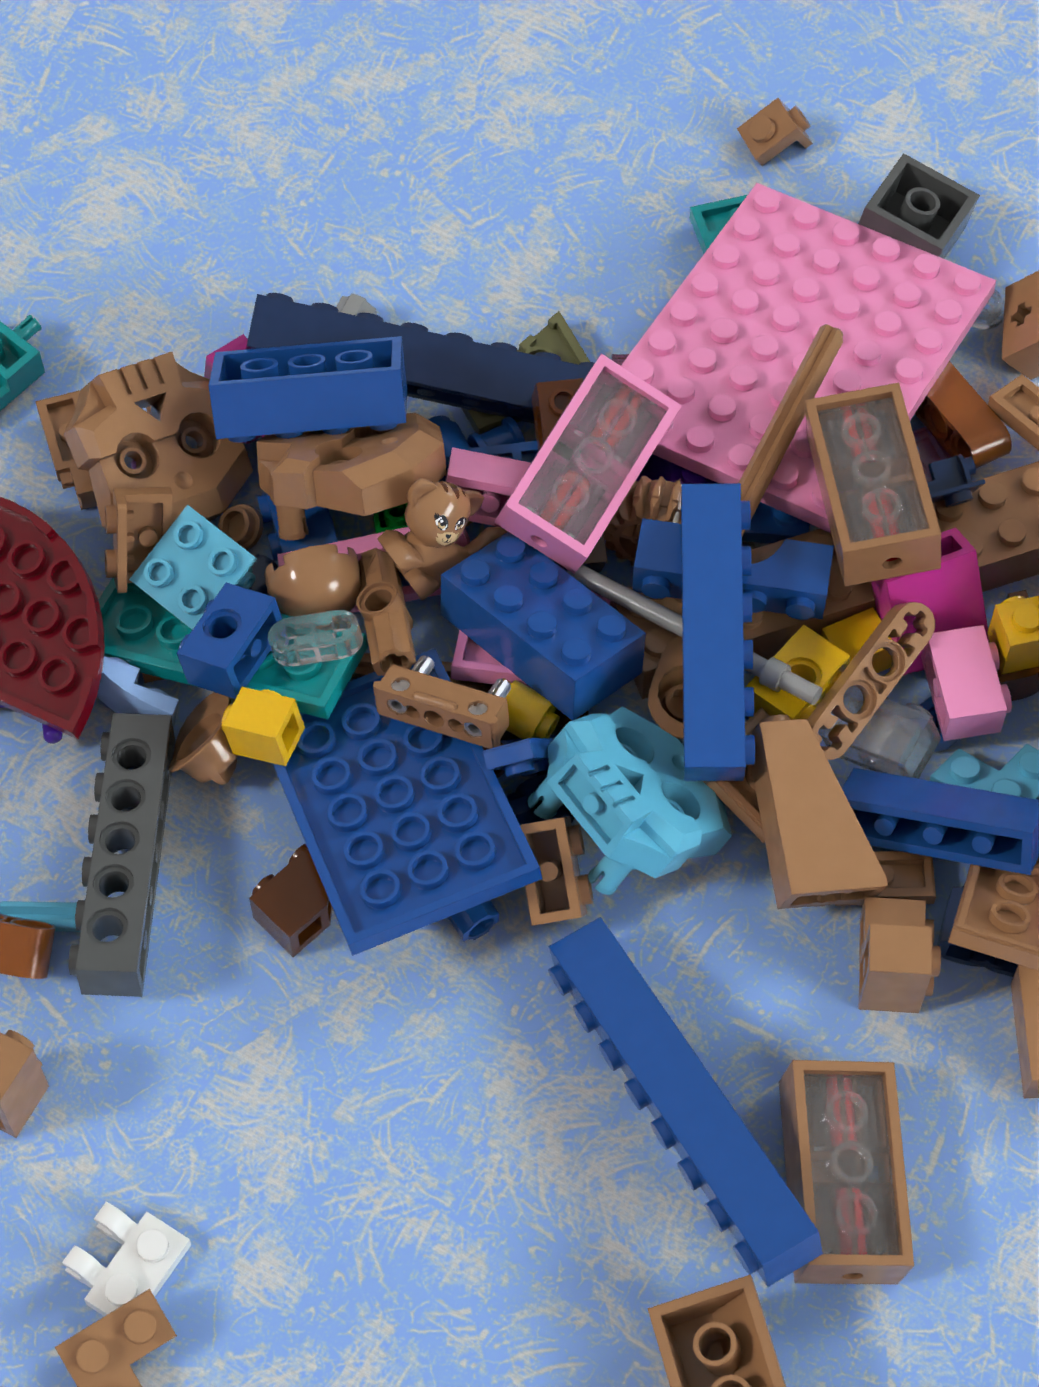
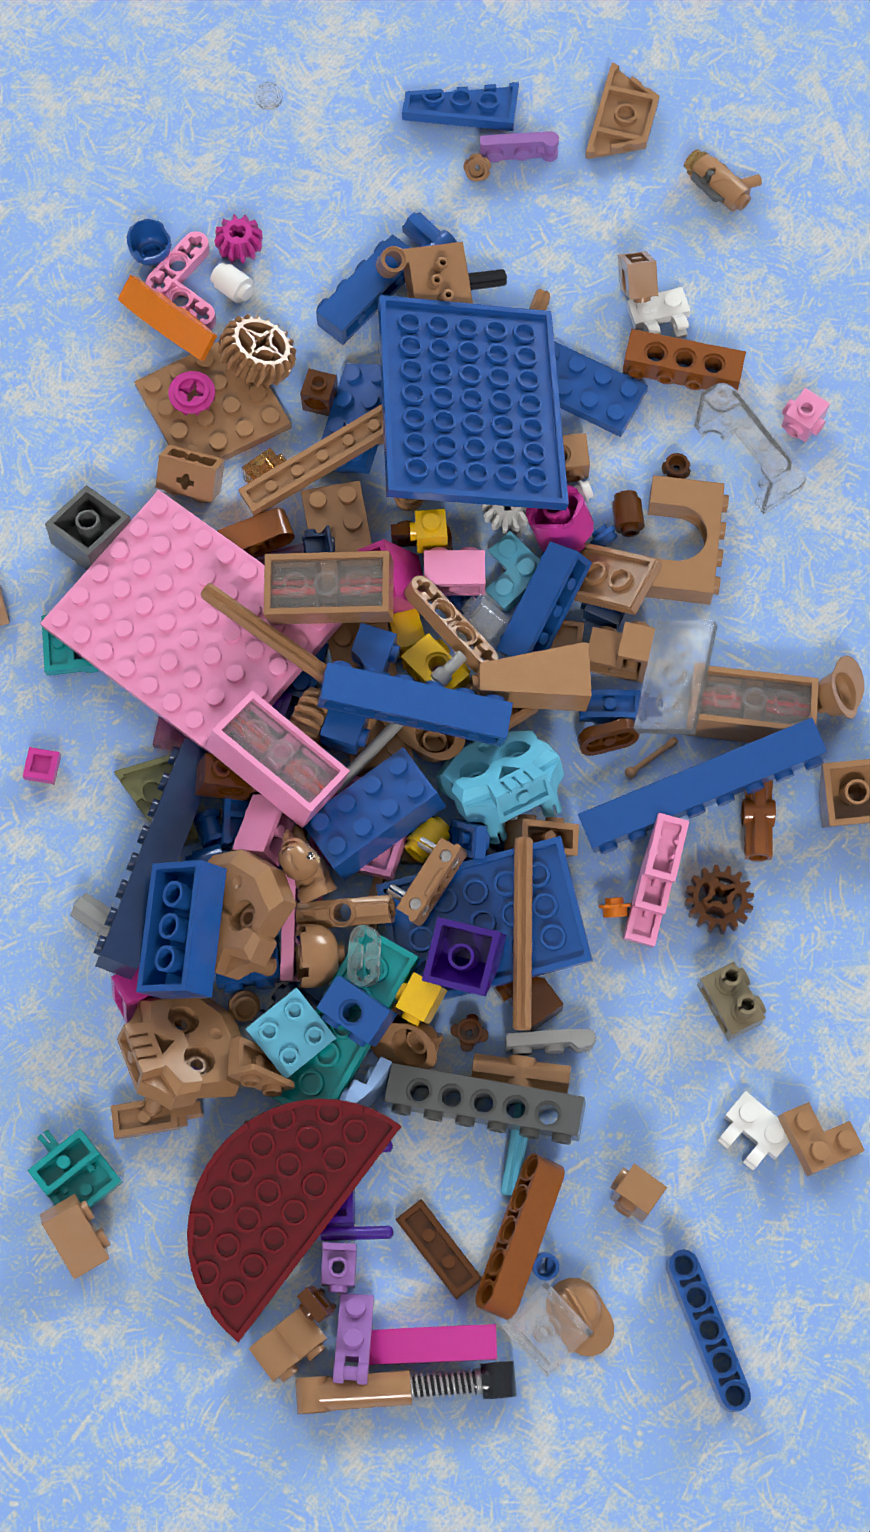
camera: 80 degrees left, 10 degrees up
(180, 903) = (522, 1071): none -> medium nougat piece
(235, 939) = (551, 1040): none -> light grey hinge
(238, 813) = (470, 1023): none -> reddish brown plate
(326, 759) = (463, 956): none -> dark purple slope
(334, 1199) = (732, 1001): none -> dark tan brick
(377, 840) = (522, 933): none -> medium nougat axle
(463, 1003) = (614, 907): none -> orange plate
(485, 1175) = (714, 887): none -> reddish brown gear
(514, 1050) = (656, 879): none -> bright pink slope
(553, 232) = (41, 765): none -> dark pink plate
(656, 1207) = (758, 819): none -> dark orange piece
(700, 1007) = (631, 772): none -> medium nougat hinge
(747, 957) = (607, 737): none -> reddish brown plate
(804, 968) = (610, 705): none -> blue hinge
(865, 1034) = (675, 677): none -> clear tile
(914, 1322) = (842, 689): none -> medium nougat piece

